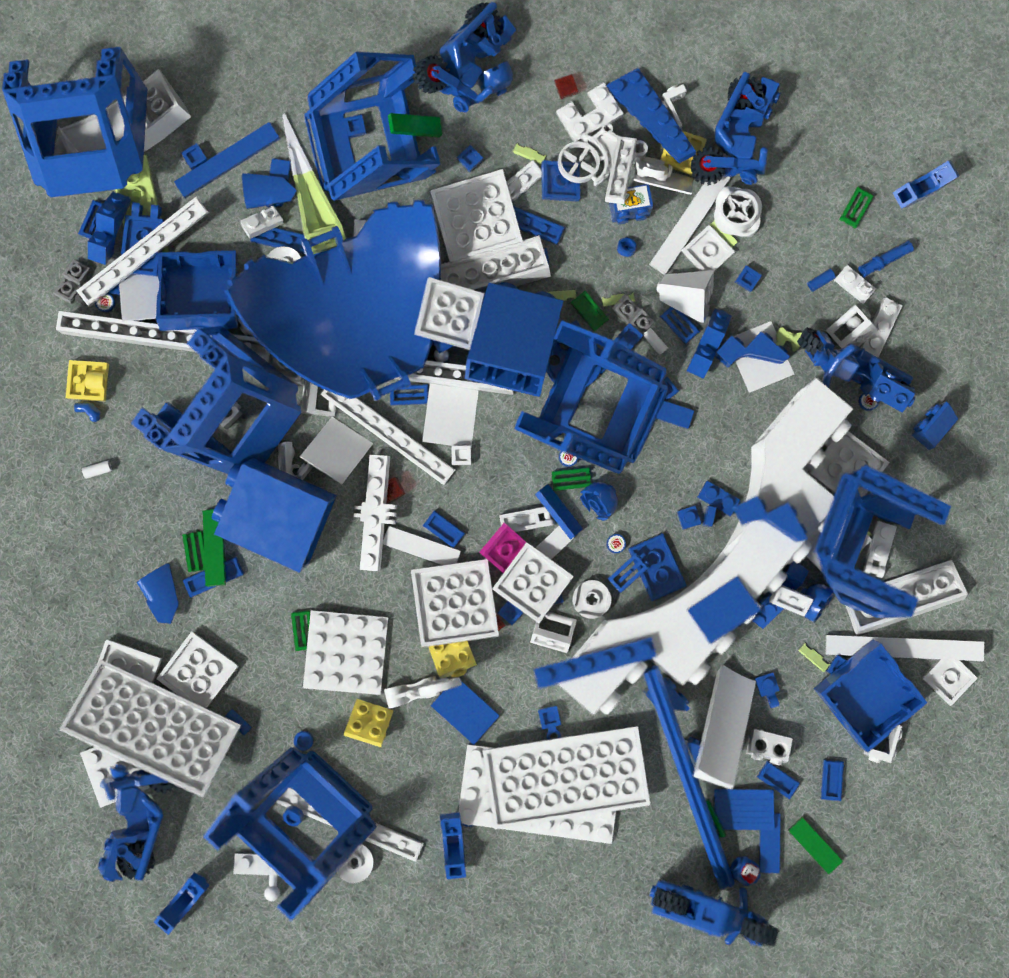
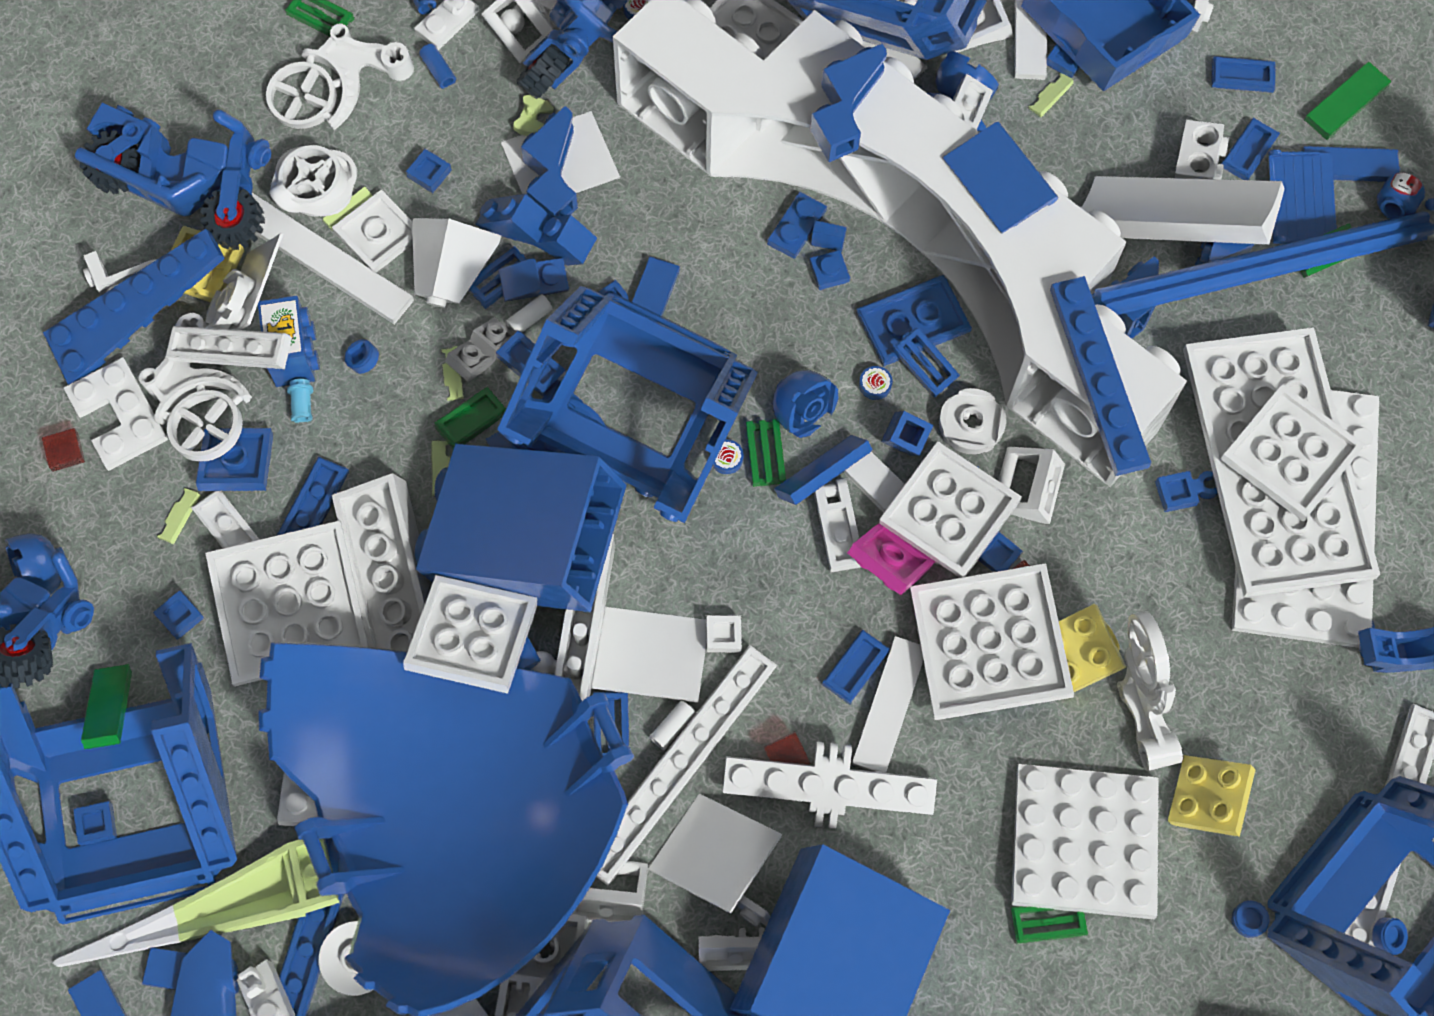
camera: 90 degrees left, 15 degrees down
(409, 428) = (672, 725): none -> white axle
(465, 711) = (1187, 623): blue tile -> none
(566, 783) = (1292, 452): none -> white plate
(580, 559) = (907, 433): none -> blue brick
(598, 214) = (300, 400): none -> medium azure pin
(676, 342) = (533, 278): none -> blue slope
(767, 687) = (1105, 161): blue plate -> none
(822, 225) = (346, 59): none -> white piece

